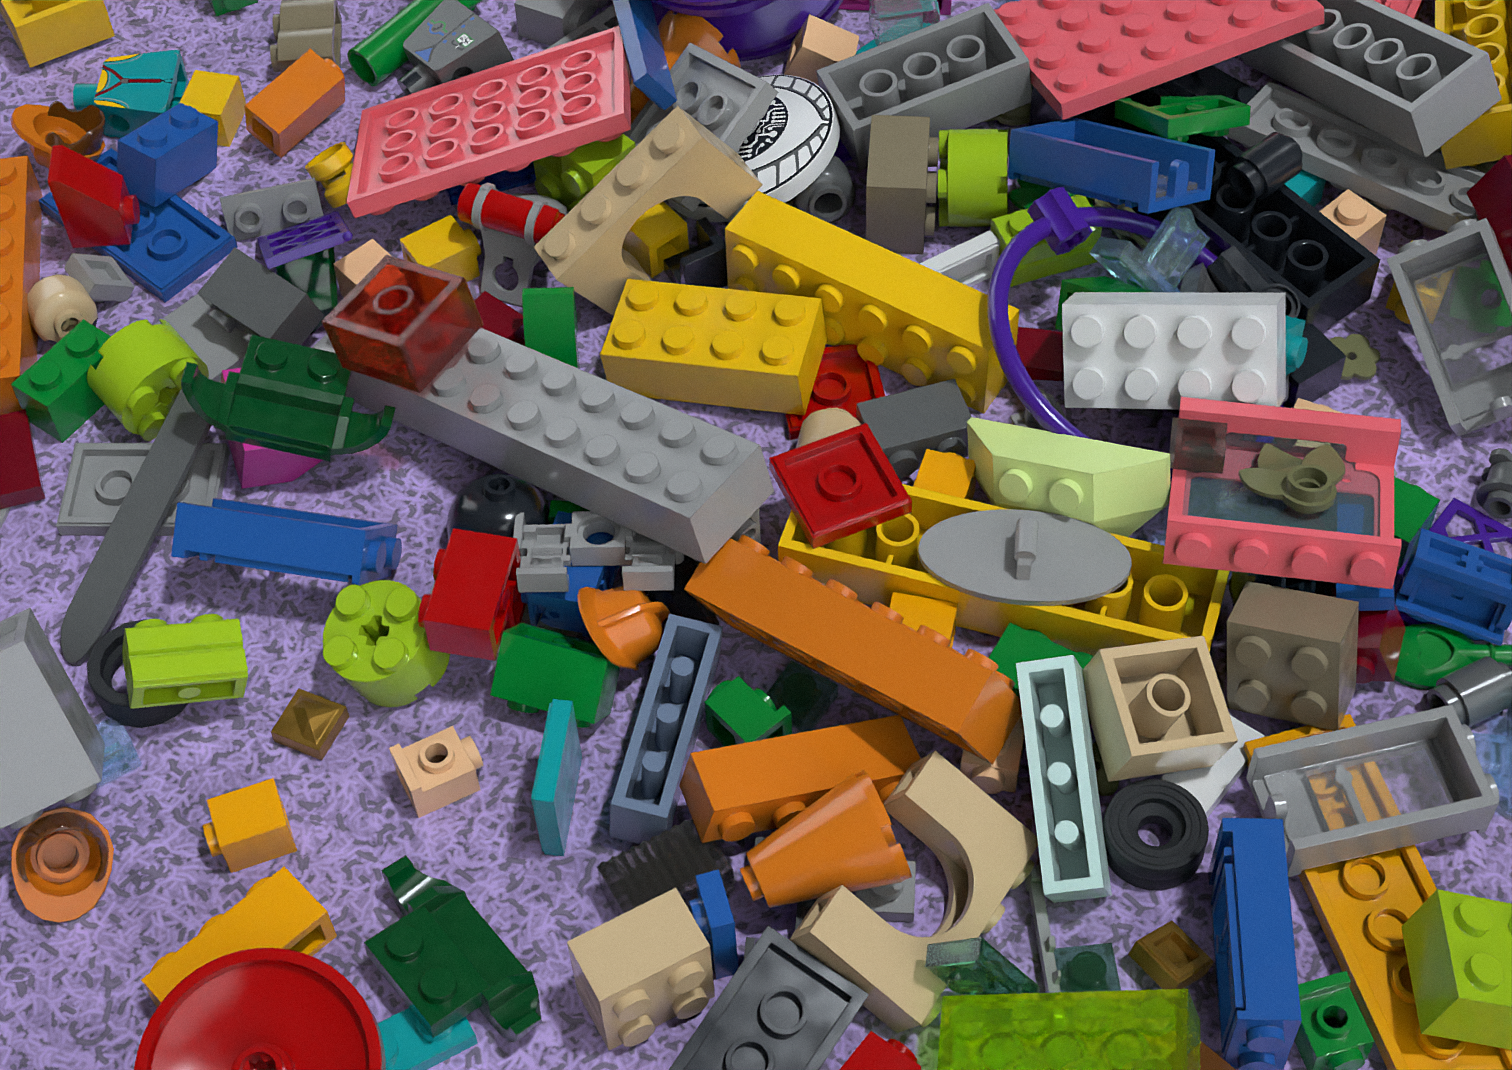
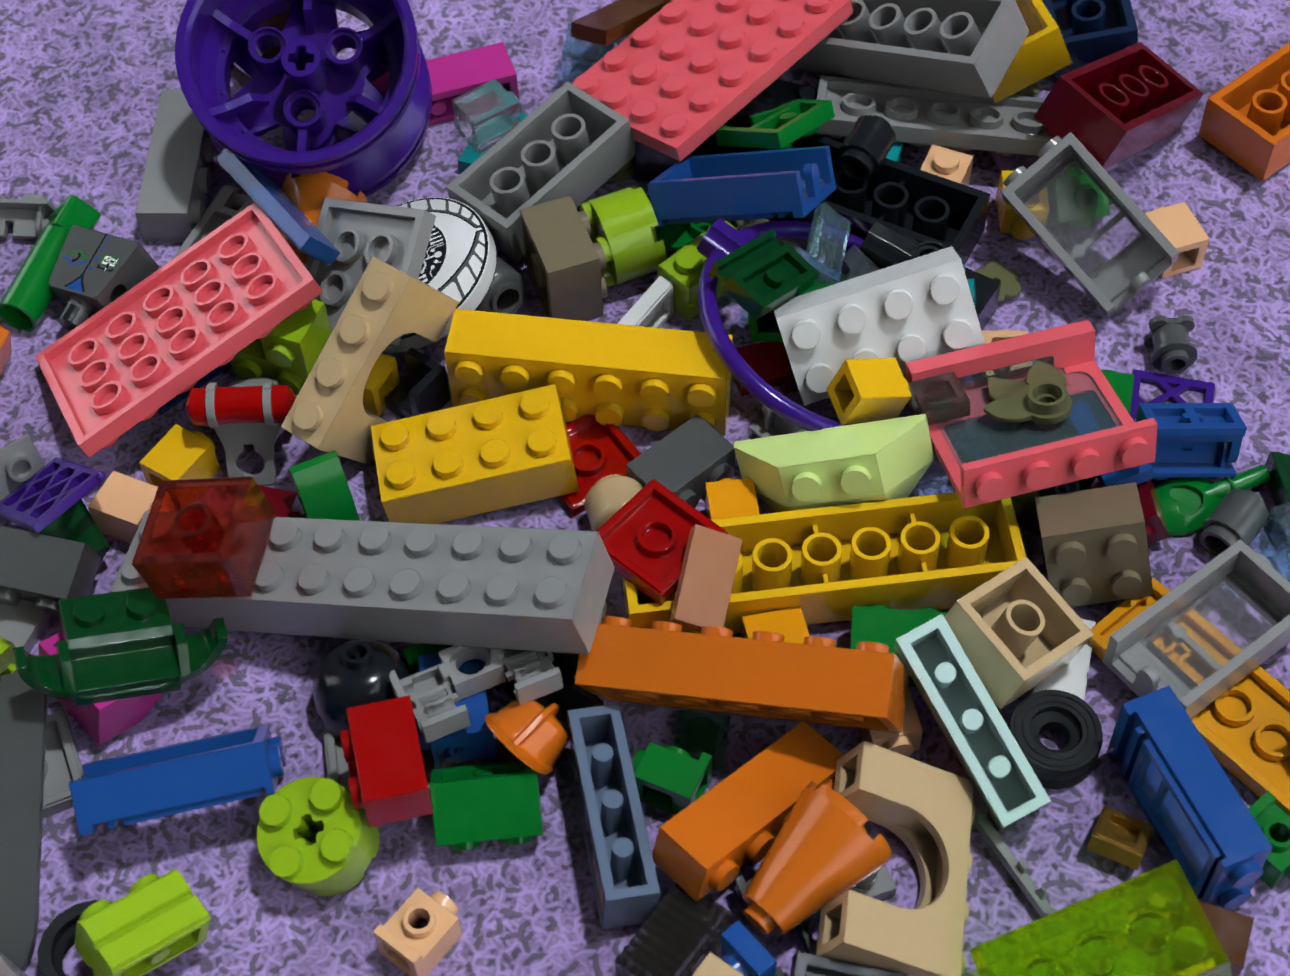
camera: 25 degrees left, 0 degrees up
(310, 724) = (276, 939): pearl gold tile -> none
(334, 172) = (44, 422): yellow wheel -> none
(557, 777) = (539, 896): teal tile -> none
(818, 46) = (430, 168): light nougat brick -> none
(865, 537) = (706, 579): none -> nougat tile
(976, 968) = (988, 915): clear green plate -> none
(1024, 557) = (841, 546): light grey shield -> none
(1076, 257) = (764, 274): none -> dark green plate
(1087, 968) = (1063, 878): clear green plate -> none
(1128, 411) = (868, 390): none -> yellow brick

